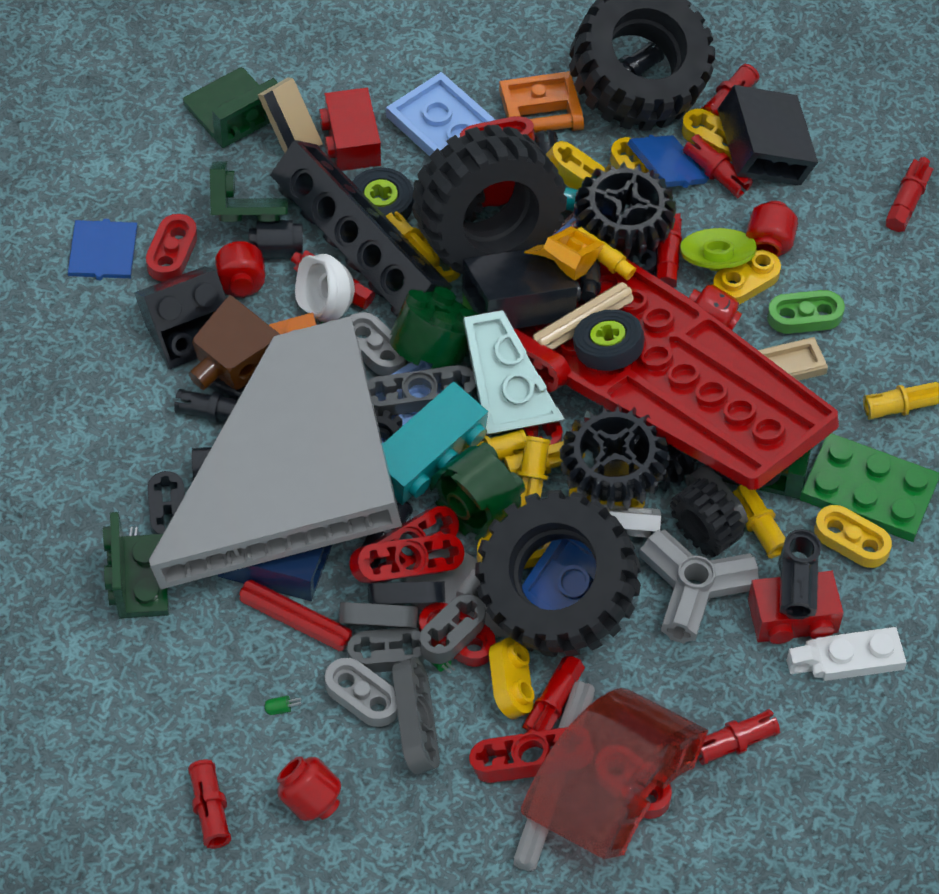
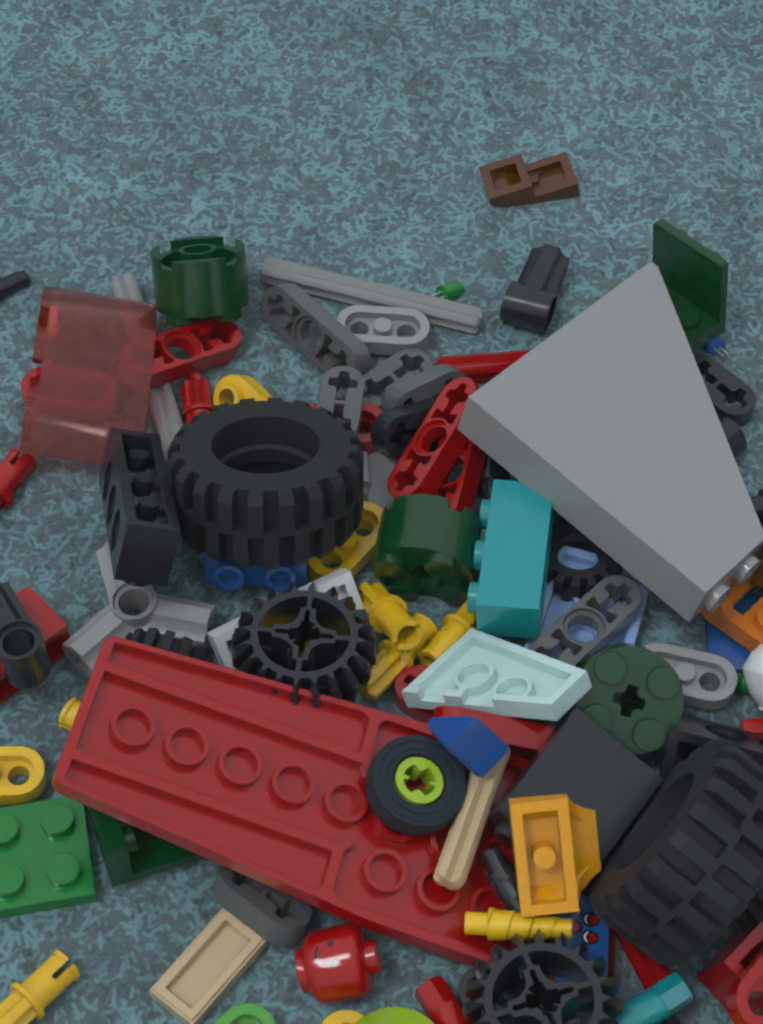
camera: 145 degrees right, 0 degrees up
(131, 760) = (517, 184): none -> reddish brown slope
(209, 804) = (432, 179): red pin -> none
(231, 647) = (534, 296): none -> black piece
(309, 788) = (355, 220): red head -> none
(344, 734) = (365, 292): none -> light grey axle
(454, 799) = (200, 280): none -> dark green brick
(565, 334) = (469, 742): none -> blue slope
(658, 609) = (138, 508): none -> black brick

